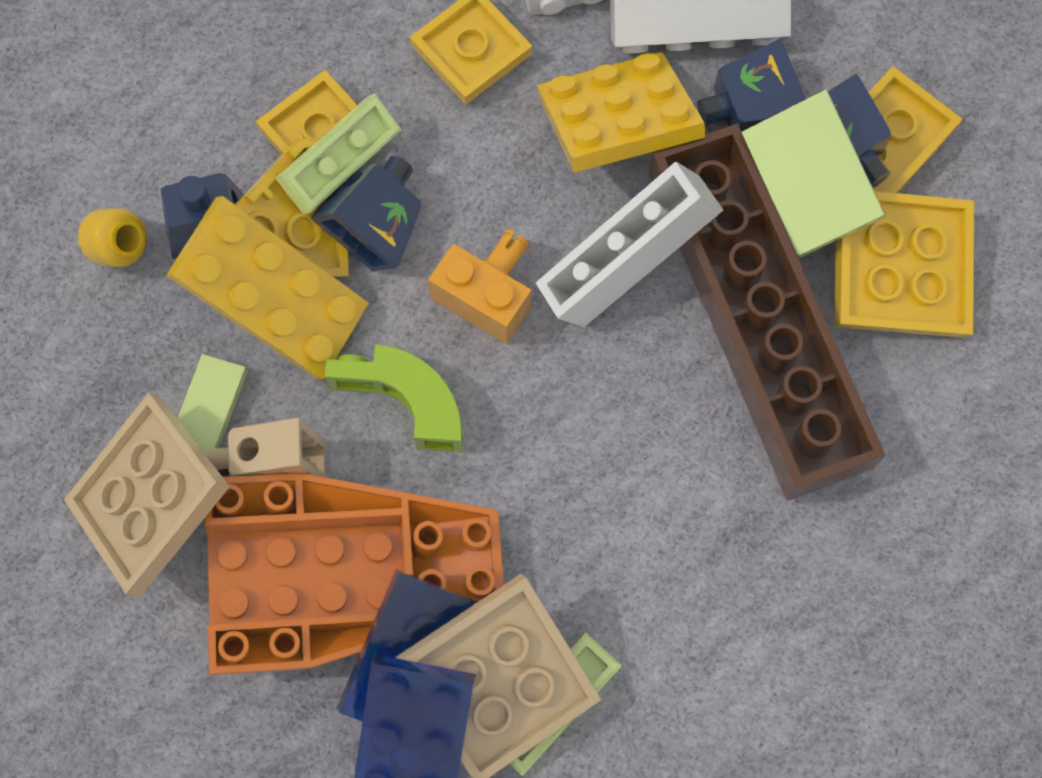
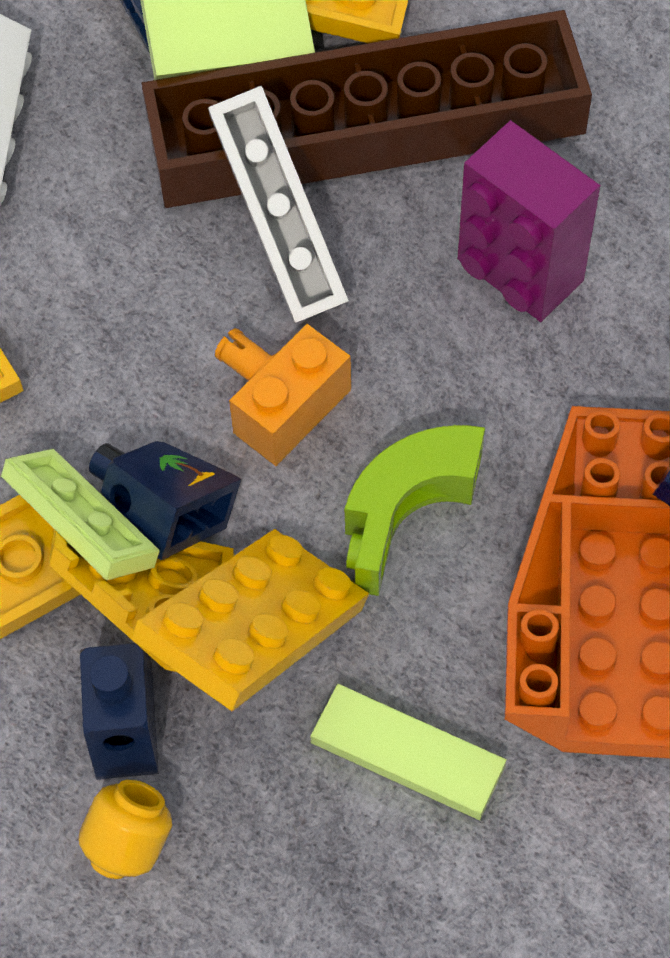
camera: 80 degrees left, 10 degrees down
(145, 494) = (512, 798): tan plate -> none
(271, 449) = (475, 633): tan torso -> none
(620, 111) = (87, 210): yellow plate -> none
(646, 442) = (526, 221): none -> magenta brick
(753, 88) = (94, 78): dark blue torso -> none

